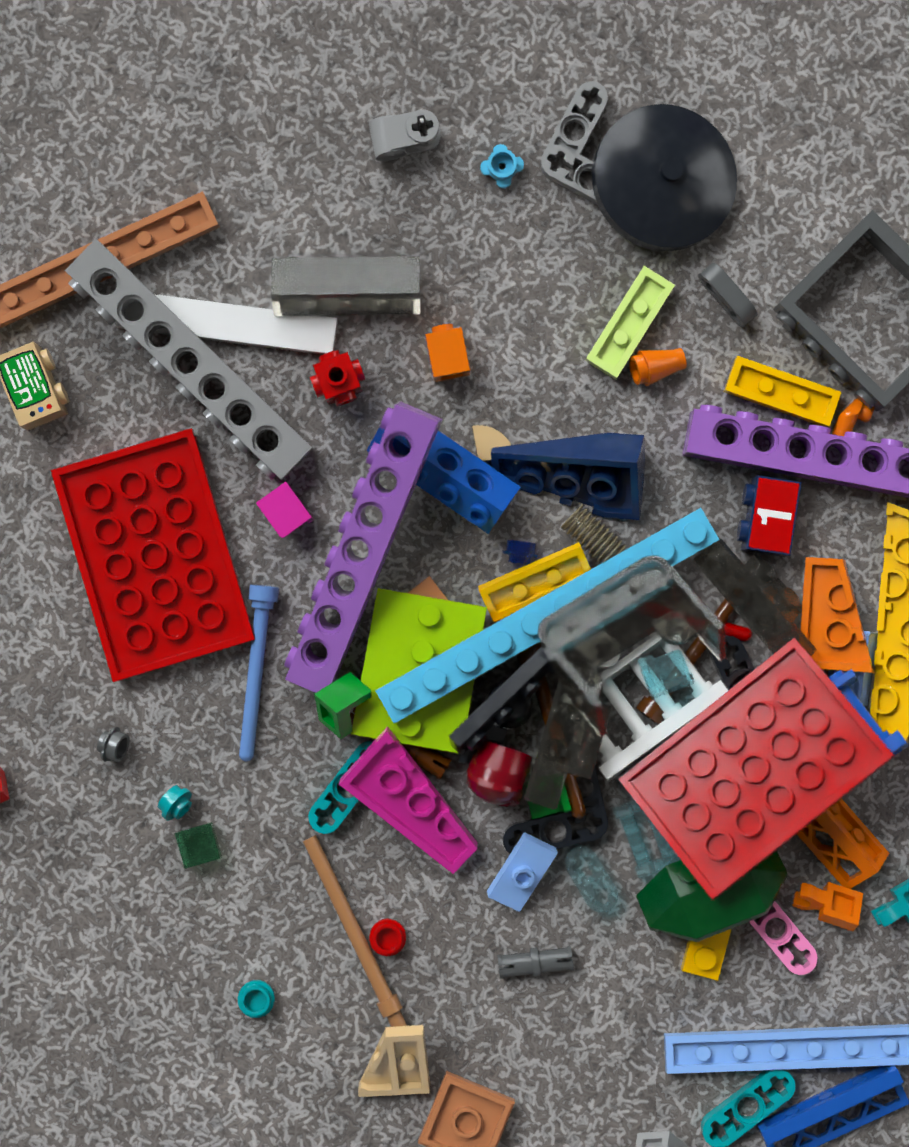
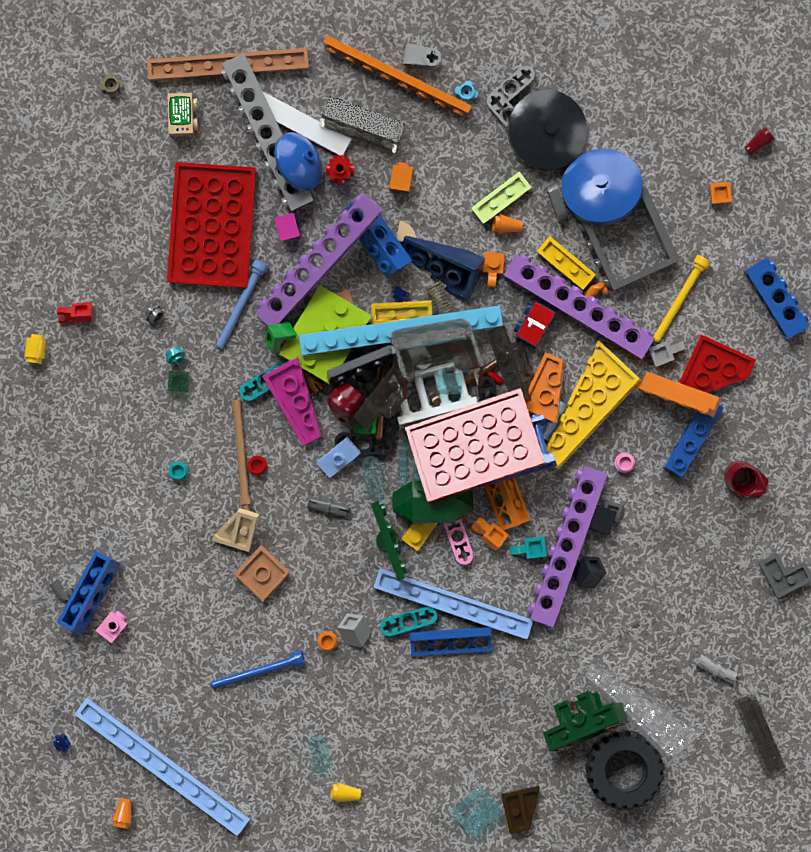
camera: 20 degrees right, 0 degrees up
(260, 390) = (298, 161): none -> blue dish
(359, 181) = (405, 81): none -> orange plate
(660, 444) = (493, 265): none -> orange plate
(664, 986) = (388, 540): none -> dark green plate
(797, 238) = (602, 187): none -> blue dish

